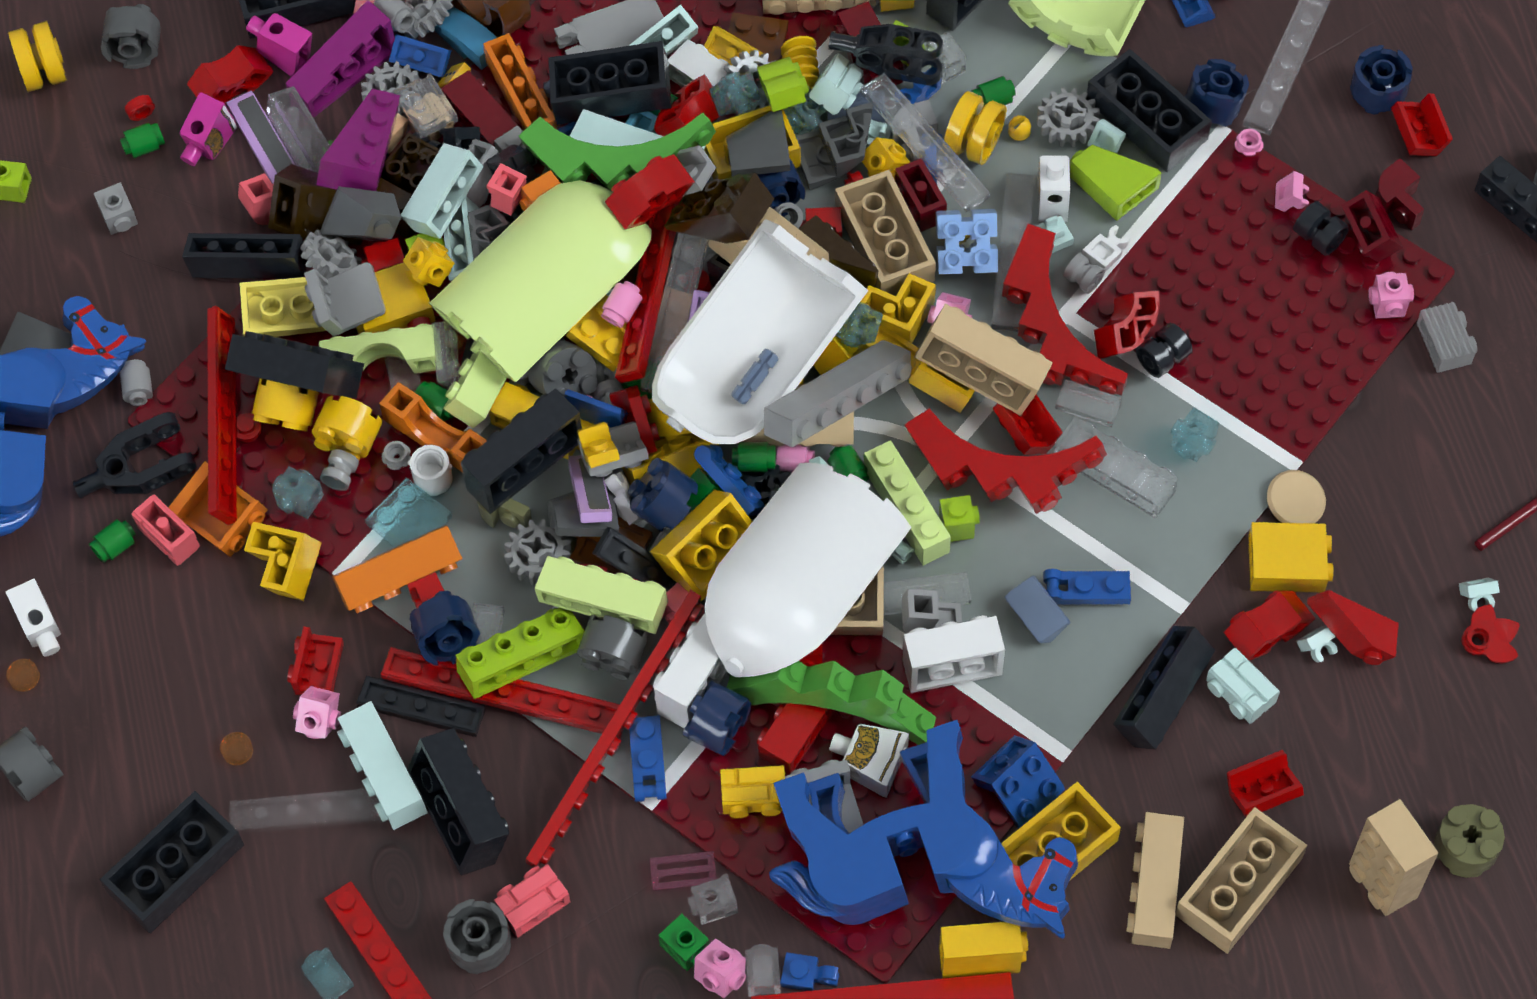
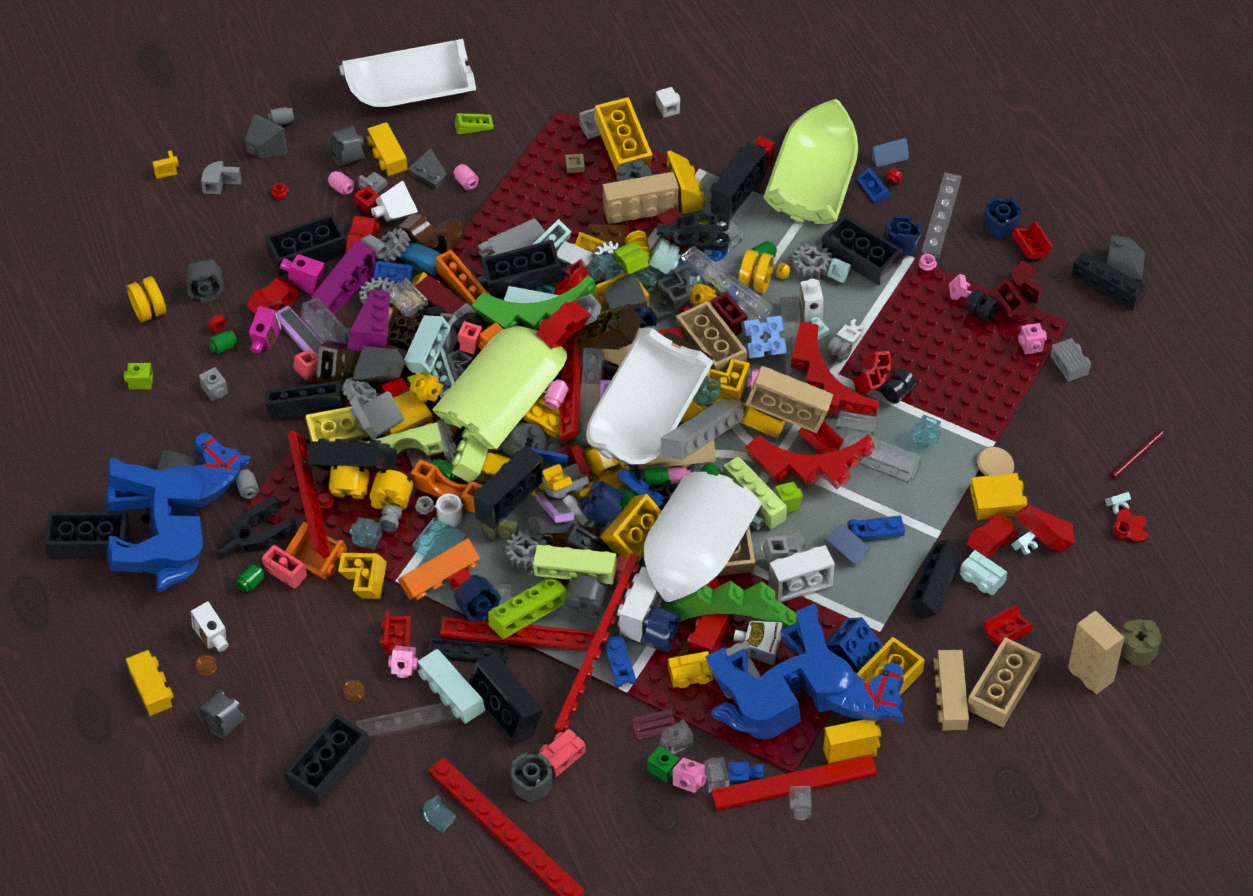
camera: 10 degrees left, 10 degrees down
(754, 376) = (649, 424): sand blue axle -> none
(1113, 180) = (848, 293): lime slope -> none

